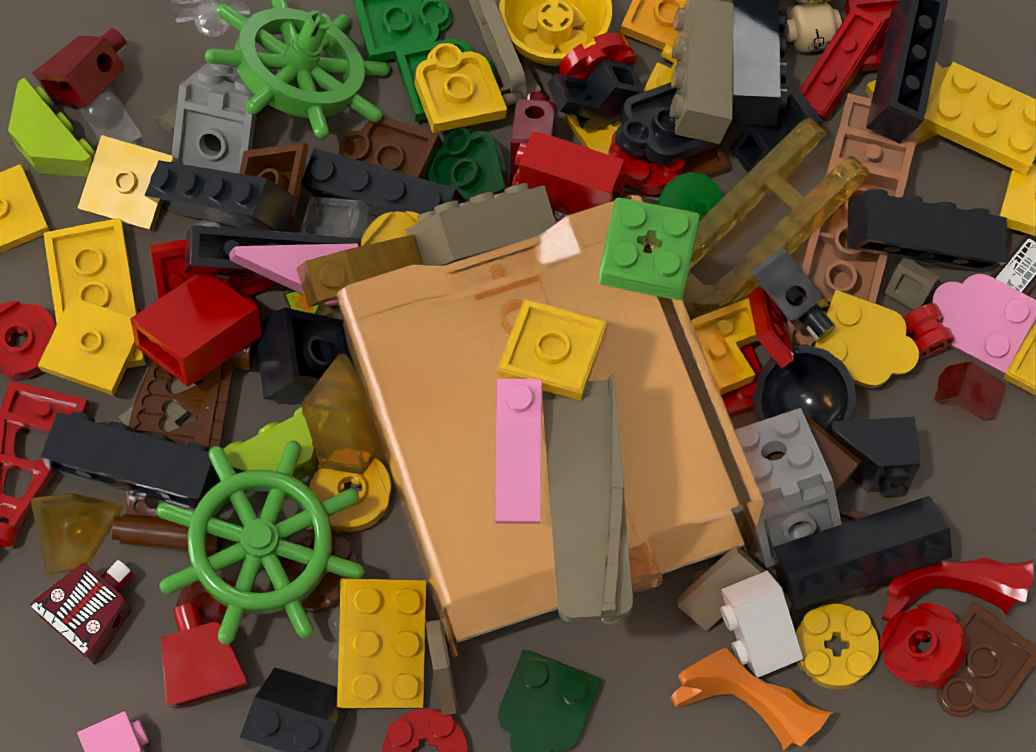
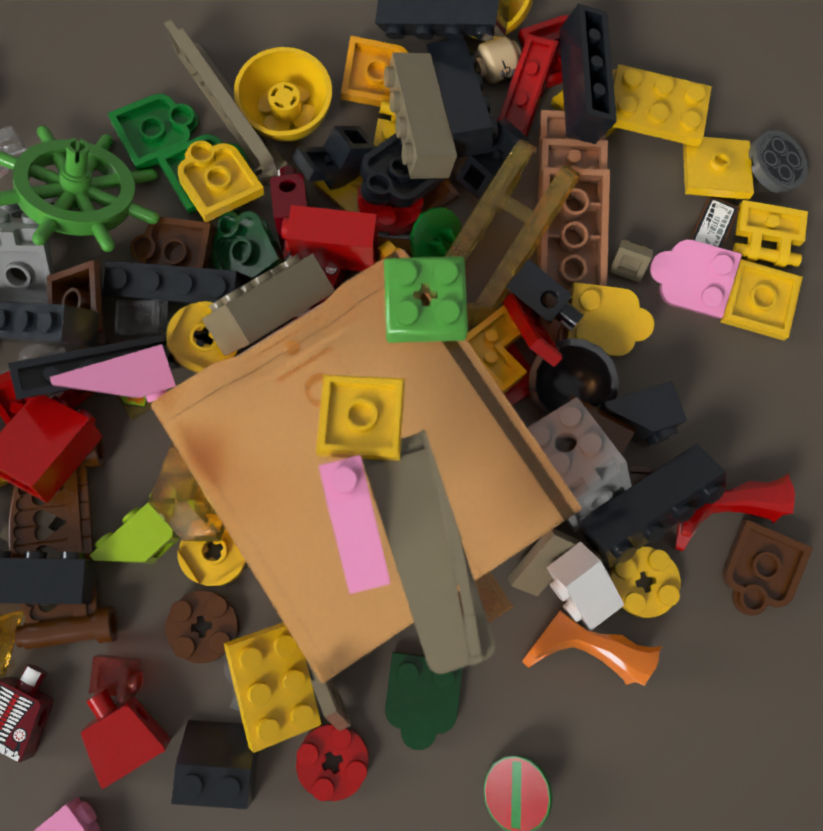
camera: 20 degrees left, 10 degrees up
(259, 542) = (143, 628): bright green piece -> none
(296, 352) = (134, 446): black slope -> none
(330, 273) = (170, 368): pearl gold slope -> none
(609, 46) = (336, 114): red plate -> none
(926, 231) = (635, 214): black brick -> none
(927, 329) = (655, 299): red wheel -> none
(934, 665) = (736, 557): red plate -> none
(971, 389) = (698, 338): clear red bracket -> none

